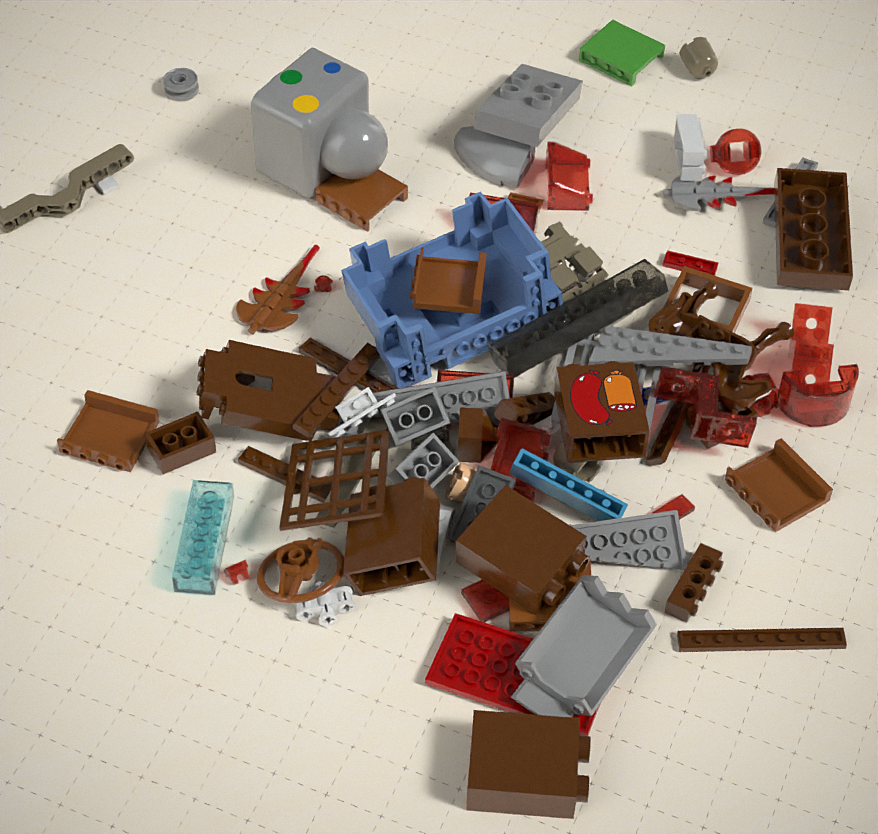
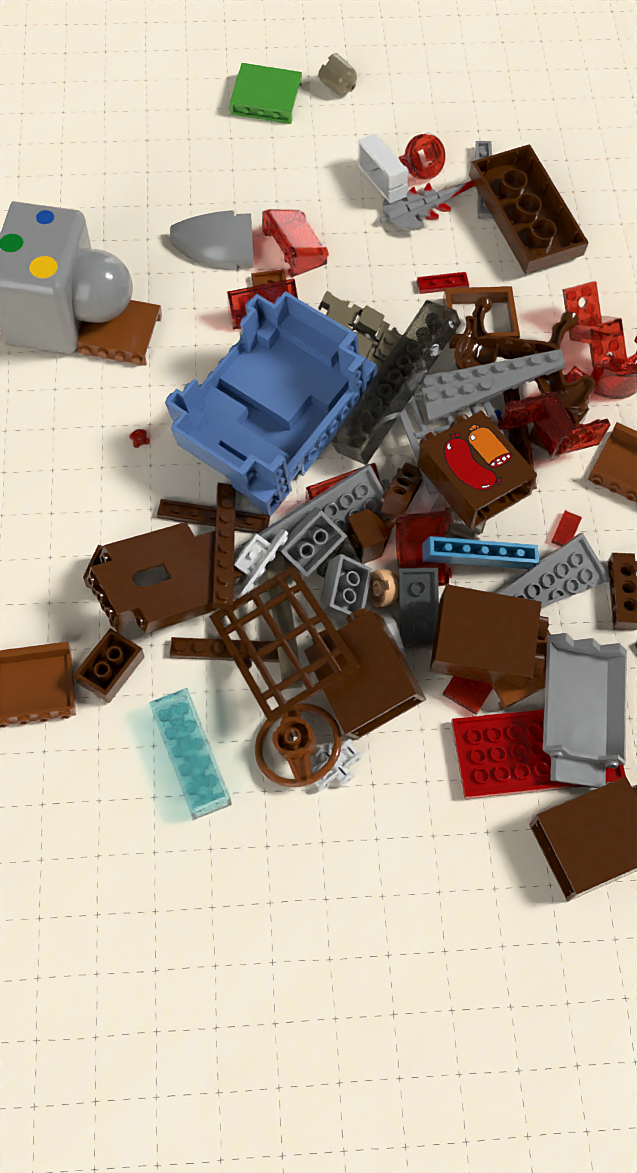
camera: 30 degrees left, 15 degrees up
(236, 569) = (236, 771): clear red tile -> none
(268, 311) = (106, 491): dark orange animal -> none
(448, 284) = (269, 395): dark orange panel -> none
(528, 105) = (223, 180): light grey plate -> none

